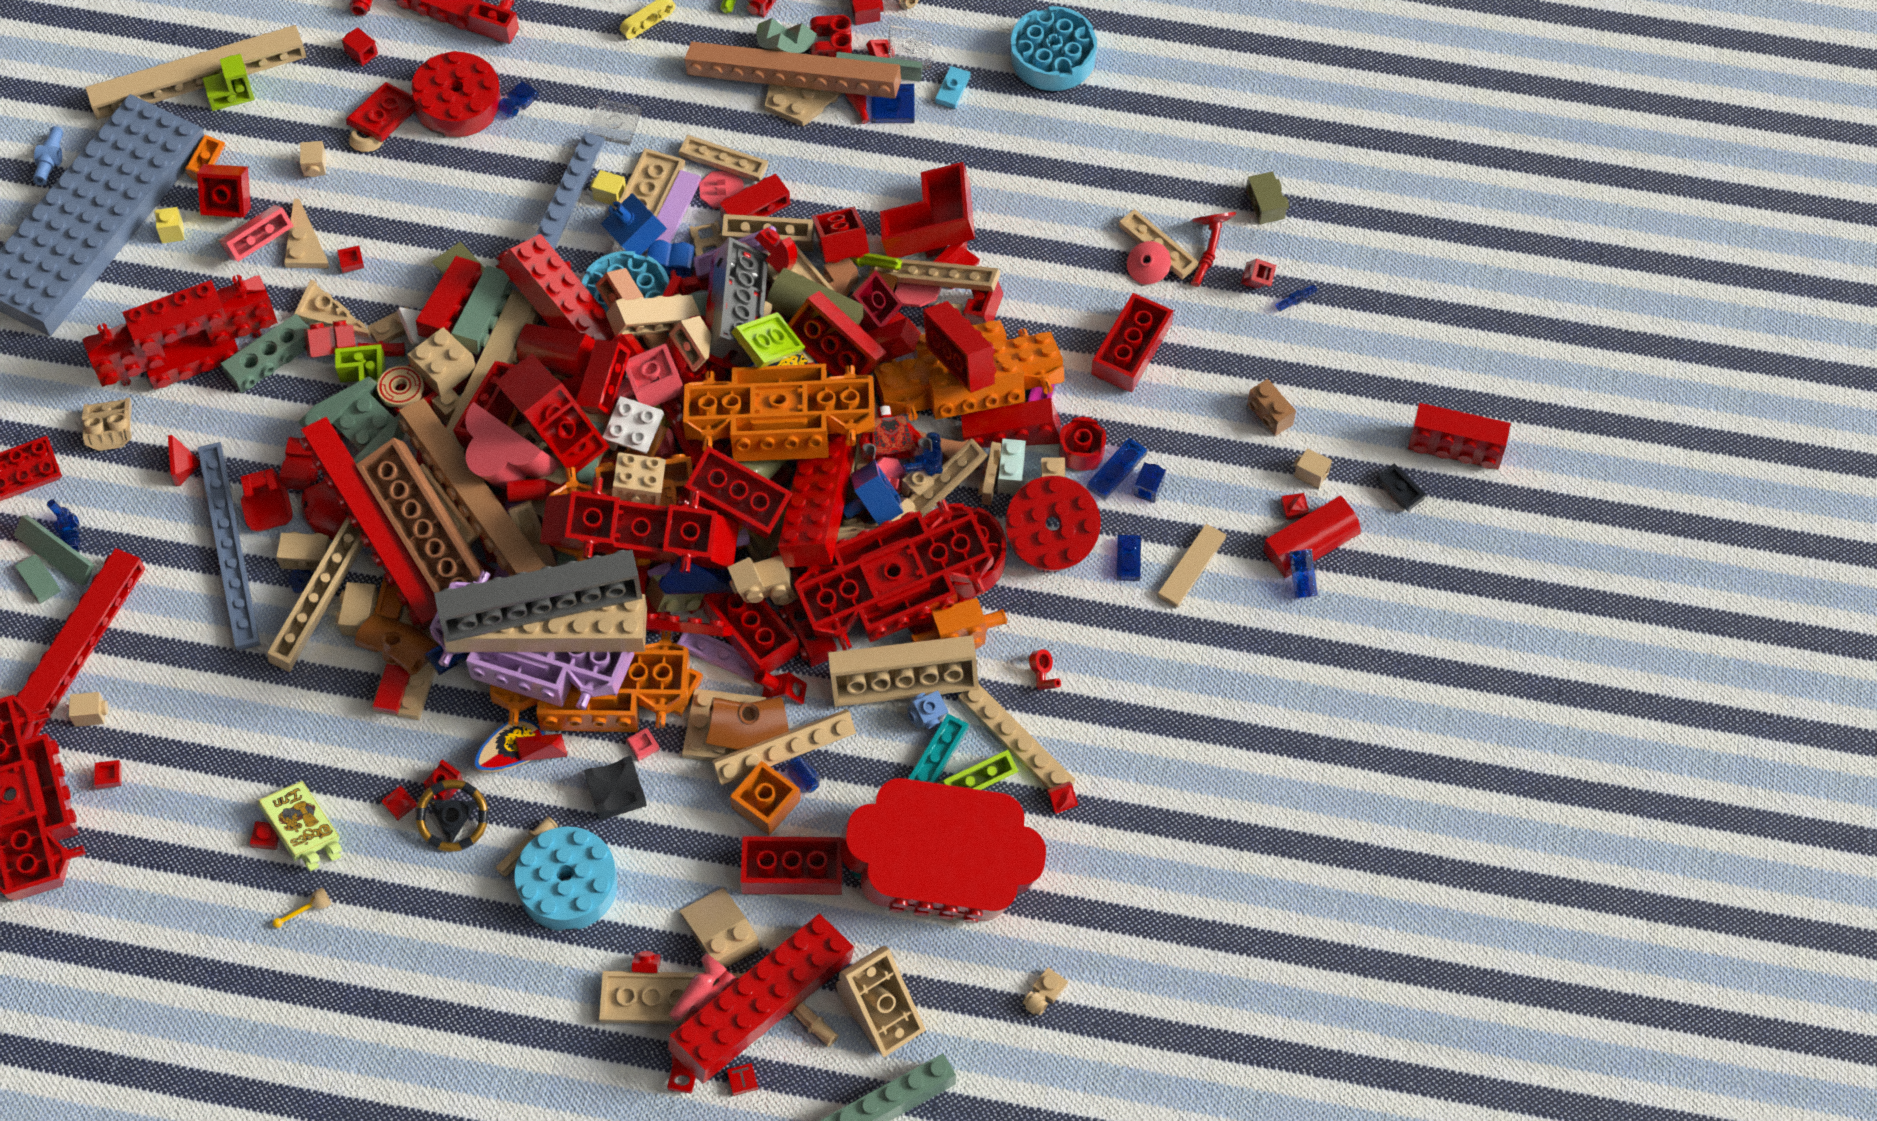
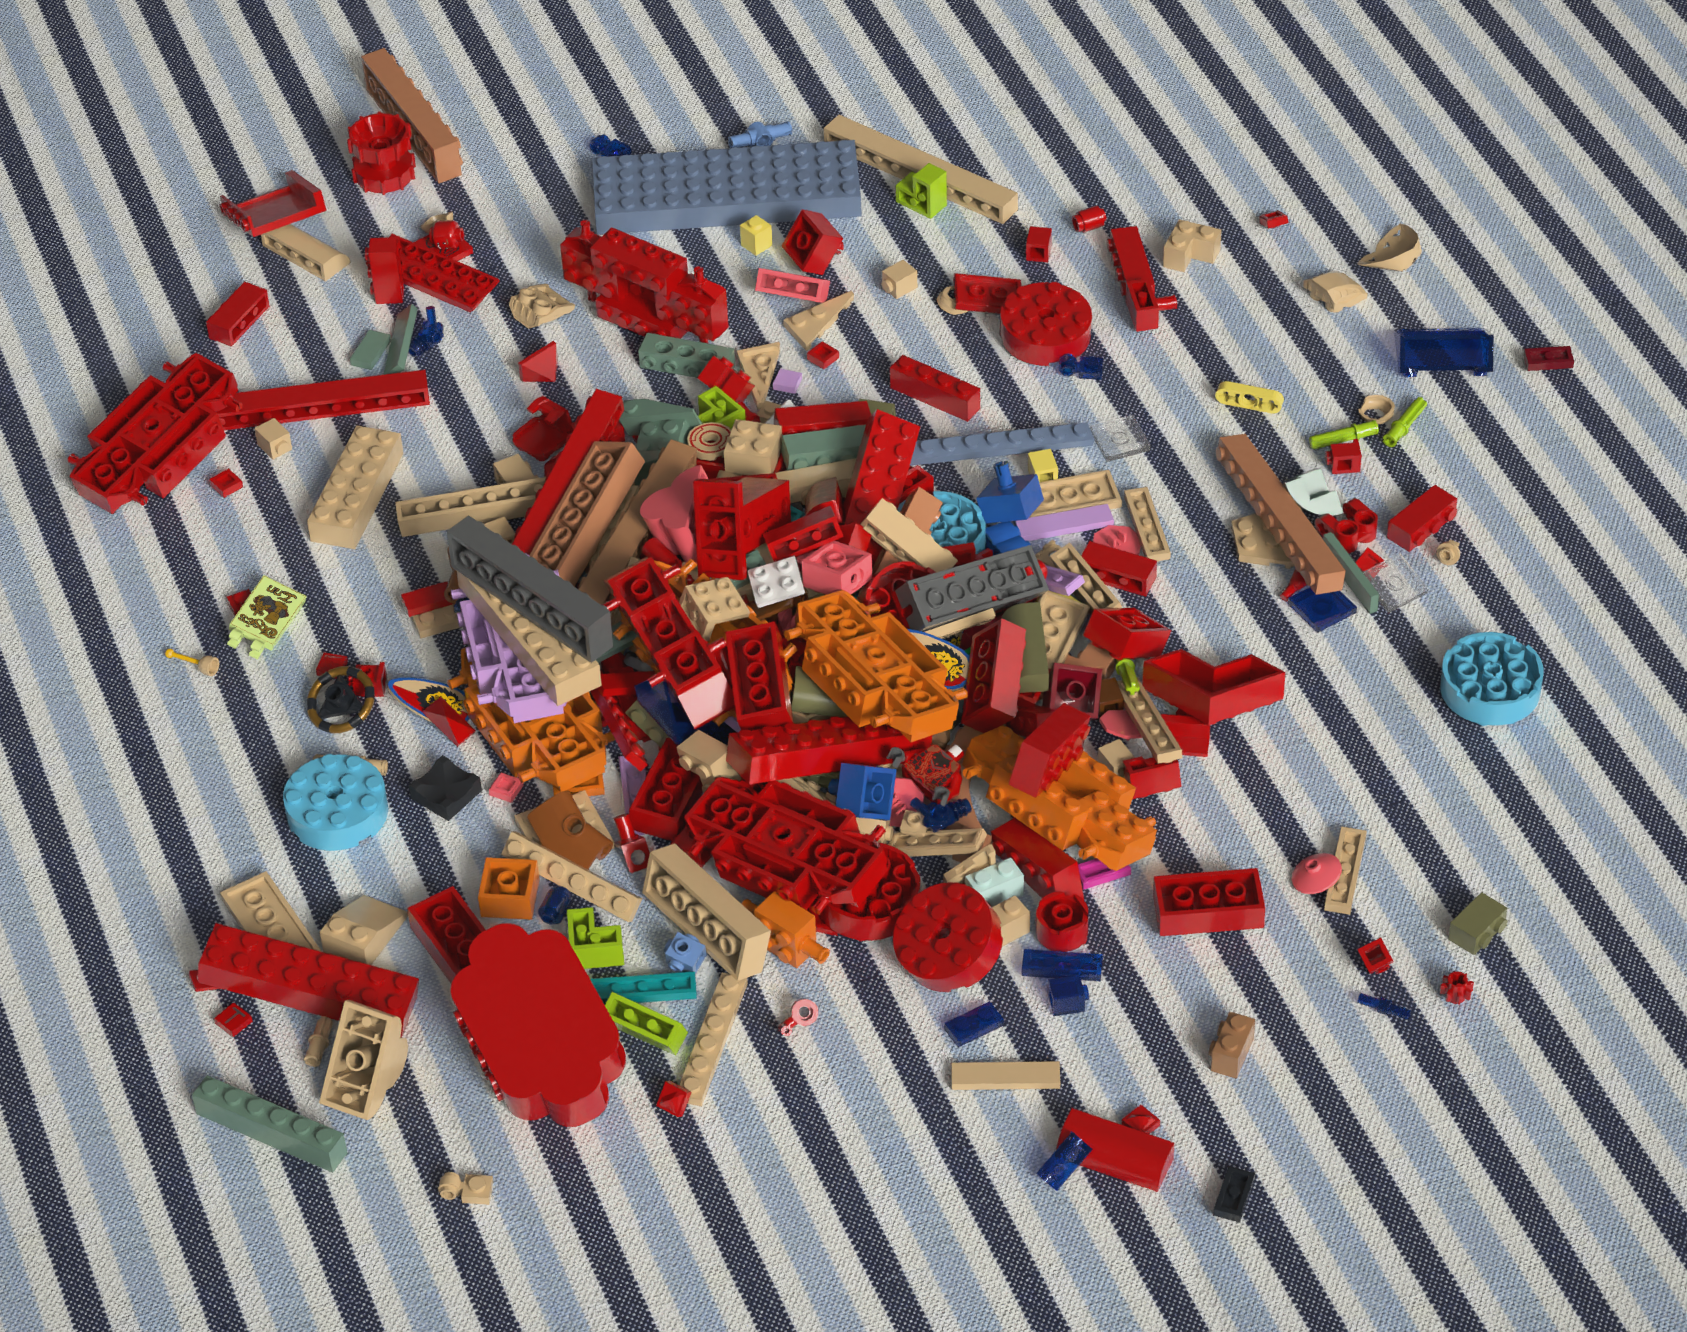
camera: 60 degrees right, 15 degrees down
(206, 153) = (845, 217): orange brick -> none
(206, 675) = (355, 487): none -> tan brick
(229, 546) = (484, 437): sand blue plate -> none
(355, 299) = (787, 381): none -> lavender tile
(459, 206) = (935, 388): none -> red brick
(646, 962) = (295, 895): red plate -> none
(692, 340) = (896, 570): slope -> none
(701, 989) = (290, 929): coral piece -> none
(745, 579) = (687, 736): tan brick -> none
(768, 340) = (941, 622): lime plate -> none
(782, 252) = (1056, 593): red brick -> none
(865, 773) = (594, 945): none -> lime brick
(953, 87) = (1382, 637): medium azure plate -> none
(1215, 223) = (1405, 898): red dish -> none
(1312, 468) = (1192, 1112): tan brick -> none
(1314, 245) = (1456, 987): none -> red gear
(1459, 436) = (1327, 1205): red brick -> none

